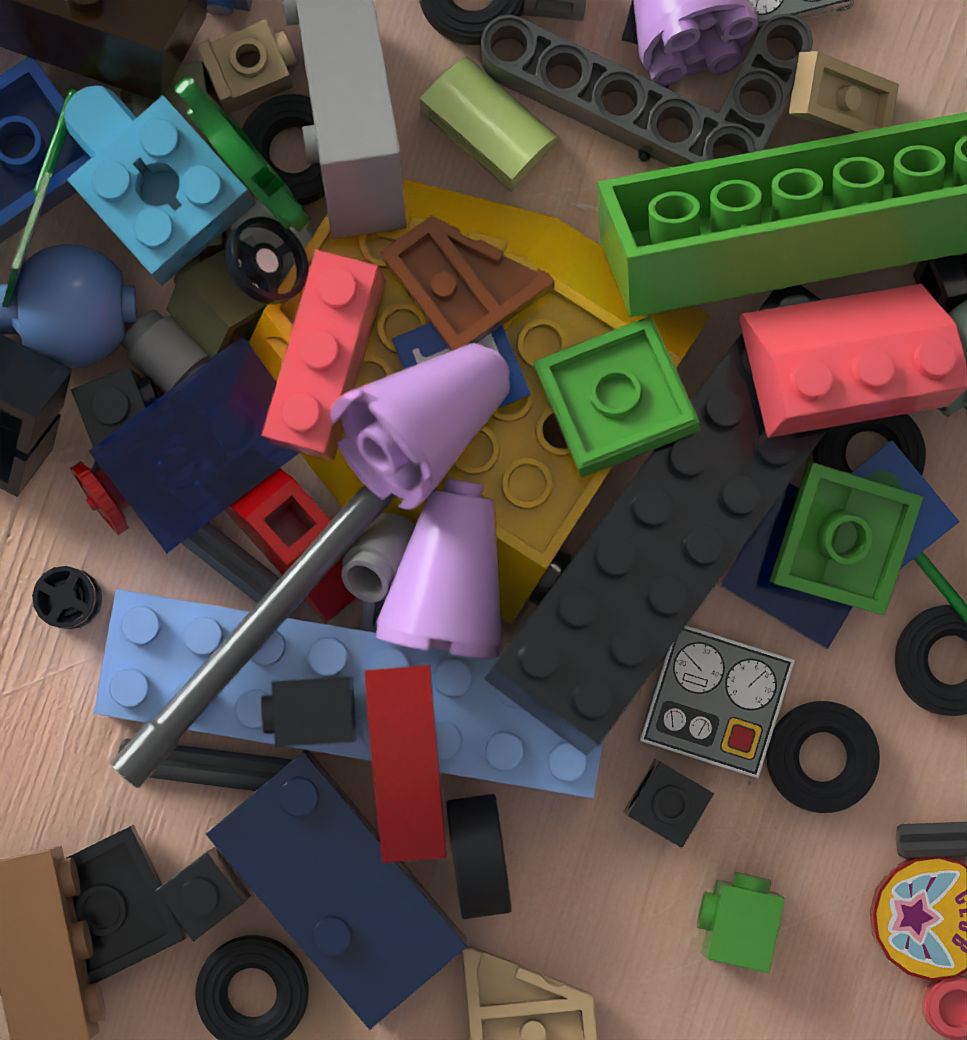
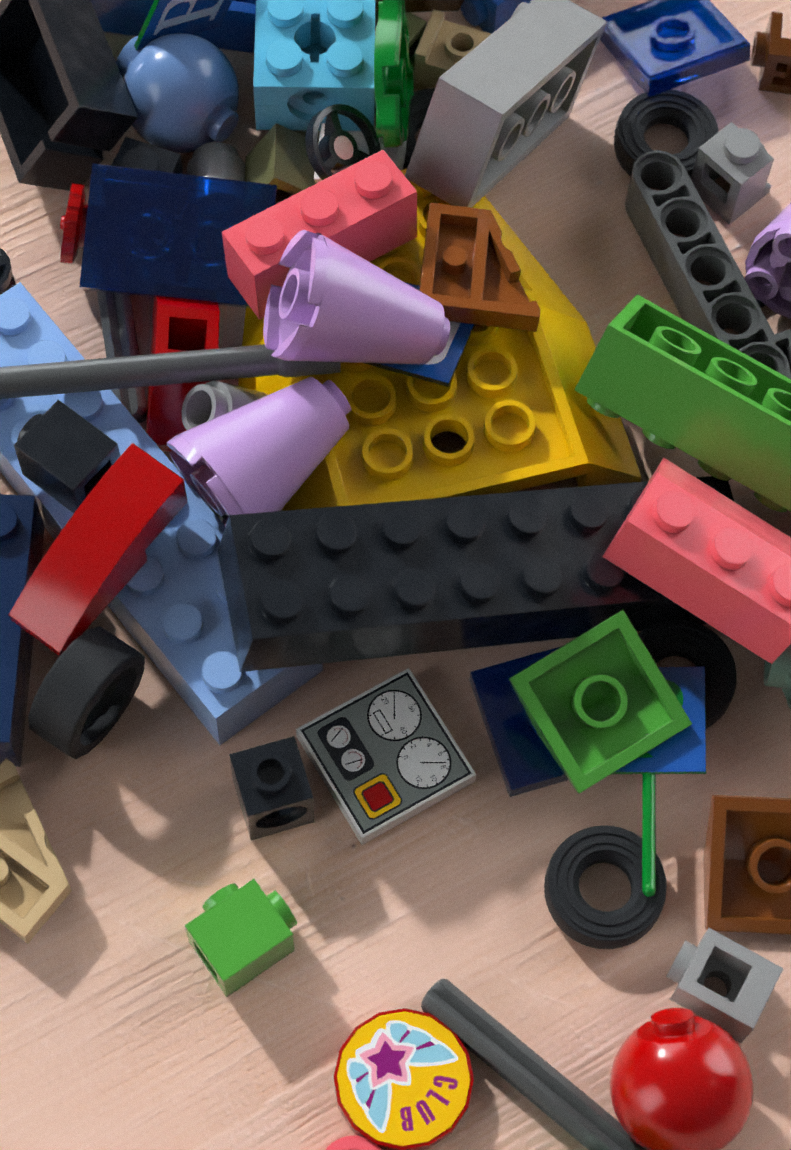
camera: 40 degrees right, 20 degrees down
(487, 122) = (593, 224): yellowish green brick -> none
(616, 396) = (511, 434): bright green tile -> none
(861, 762) = (438, 830): black tyre -> none

